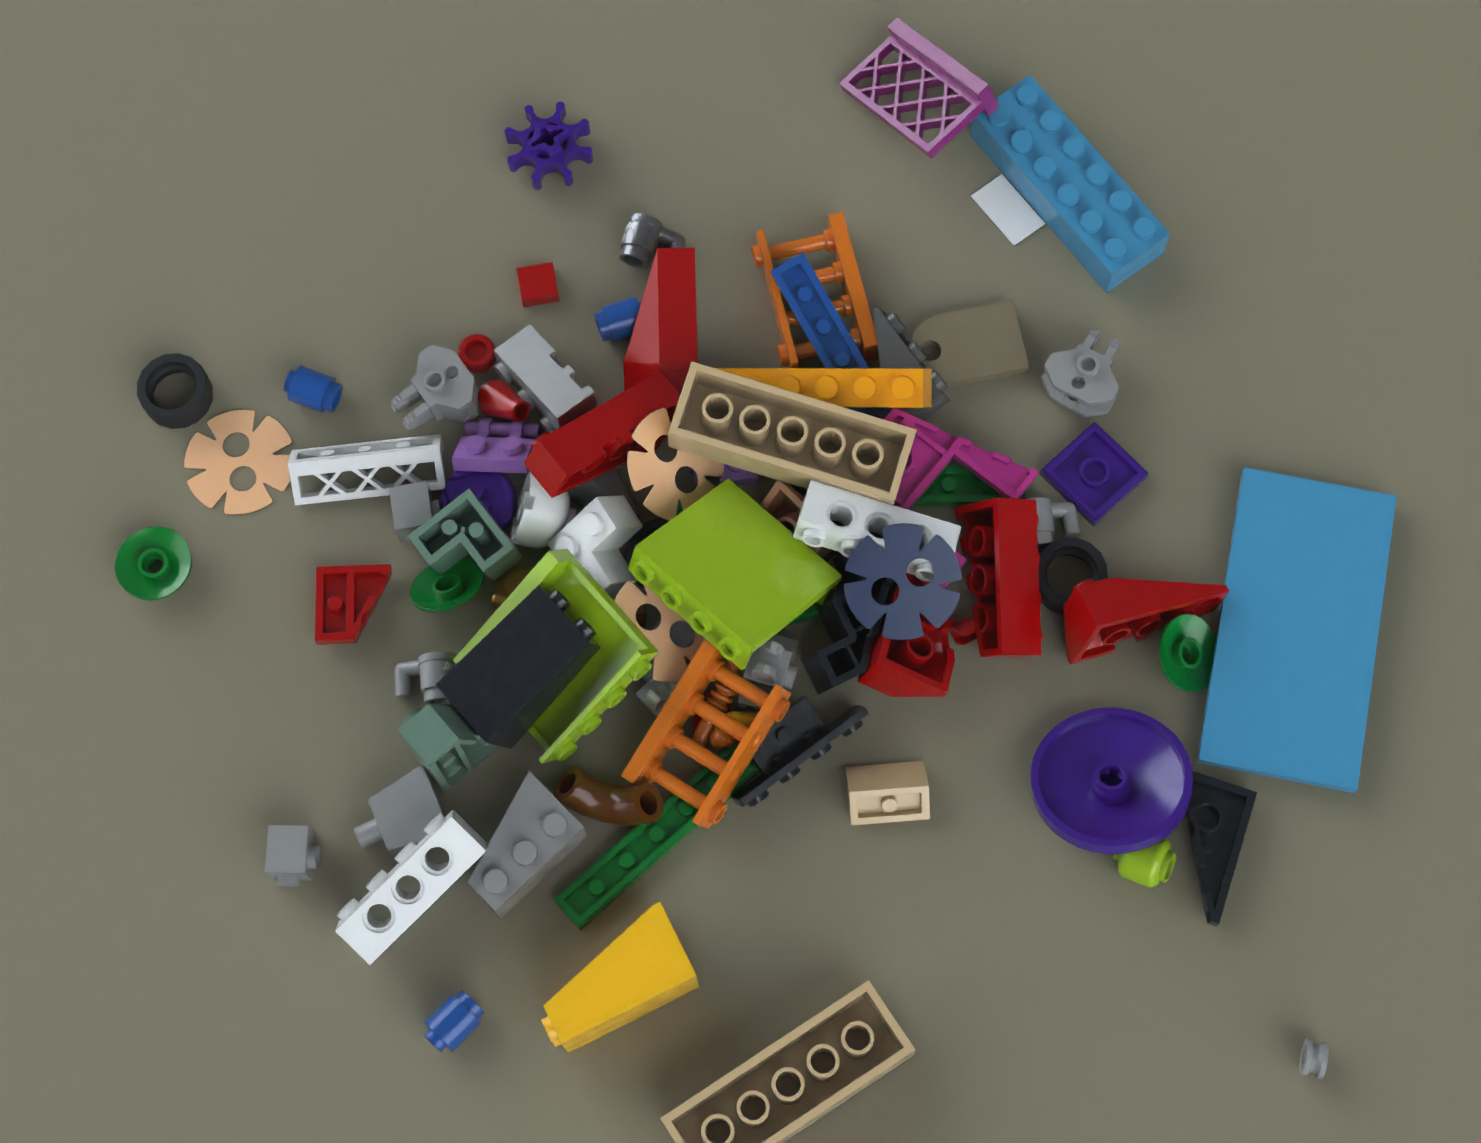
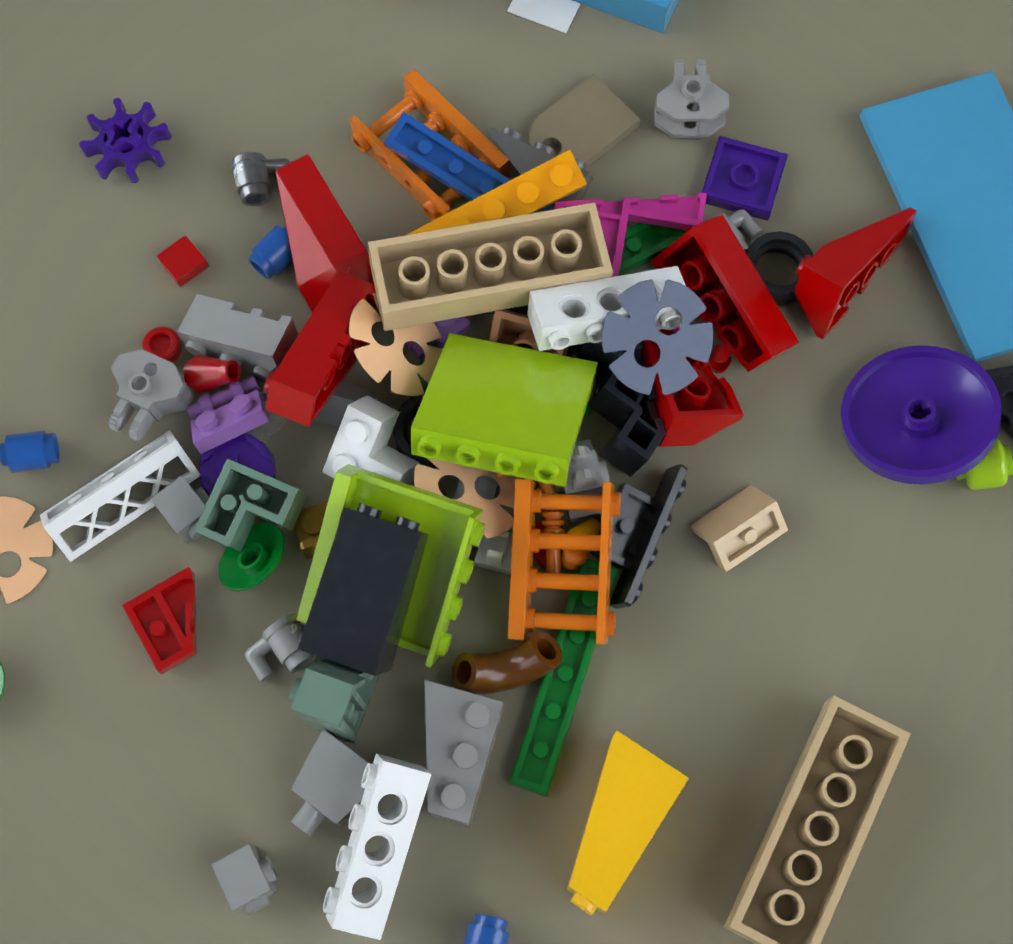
camera: 30 degrees left, 0 degrees up
(539, 515) = (299, 450): white cylinder -> none
(1187, 652) = (911, 278): green dish -> none

